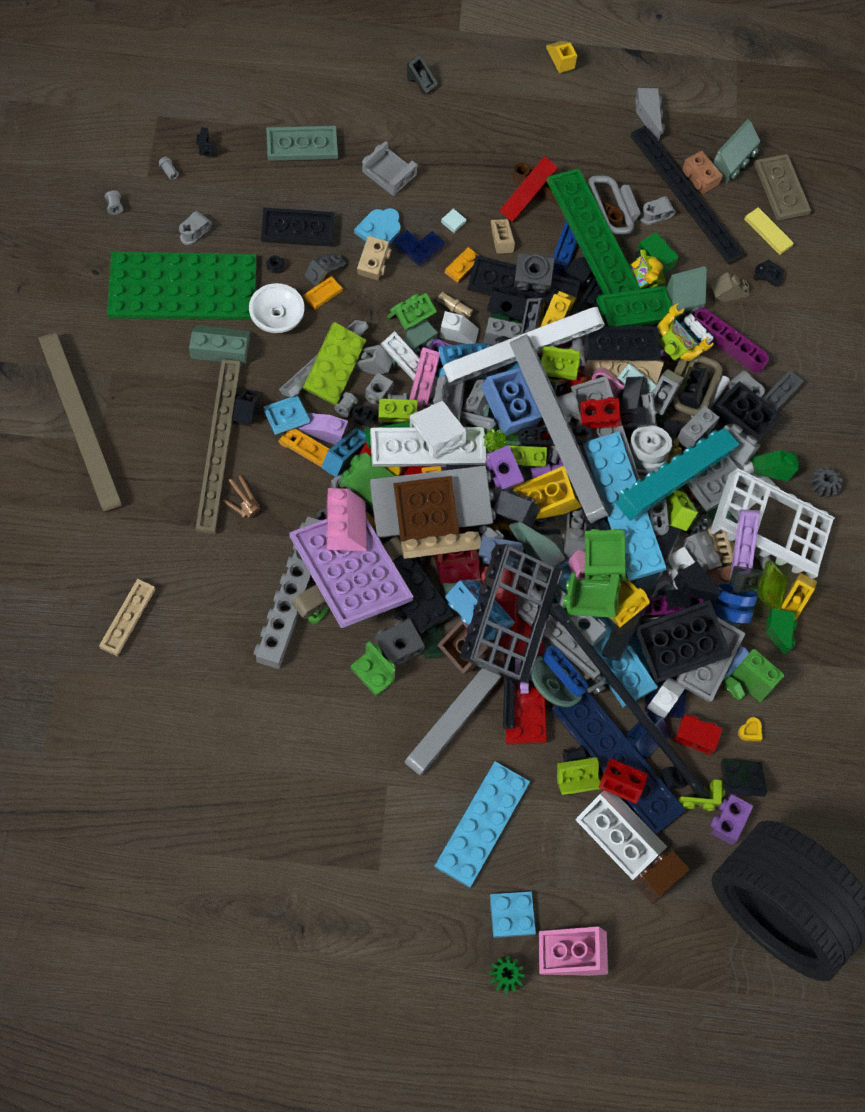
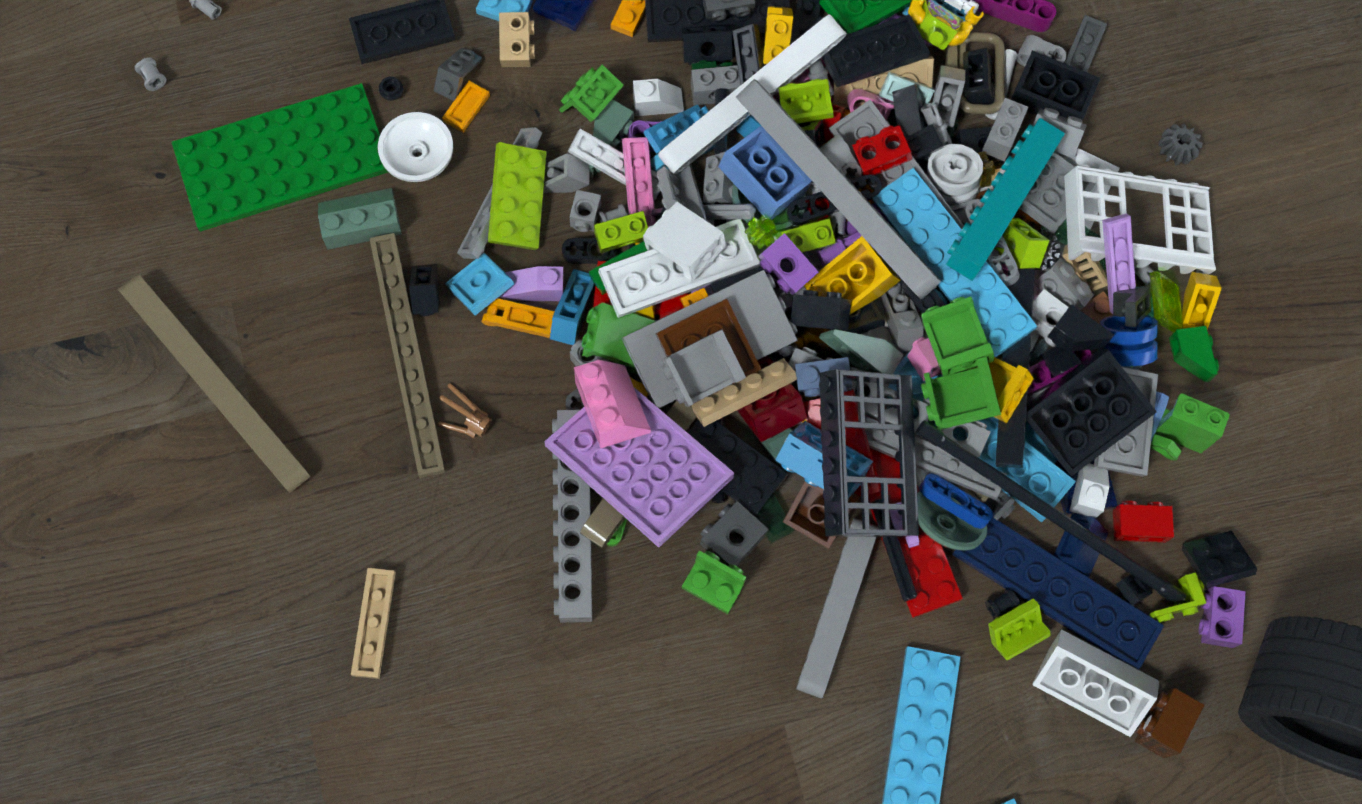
camera: 15 degrees left, 5 degrees up
(194, 228) = (268, 74): light grey piece -> none
(346, 404) = (550, 244): light grey bush -> none
(416, 518) = (702, 368): none -> light grey panel
(454, 305) = (640, 67): tan pin -> none
(623, 780) = (1078, 617): red brick -> none
(751, 730) = (1203, 493): yellow tile -> none
(776, 465) = (1114, 143): green slope -> none

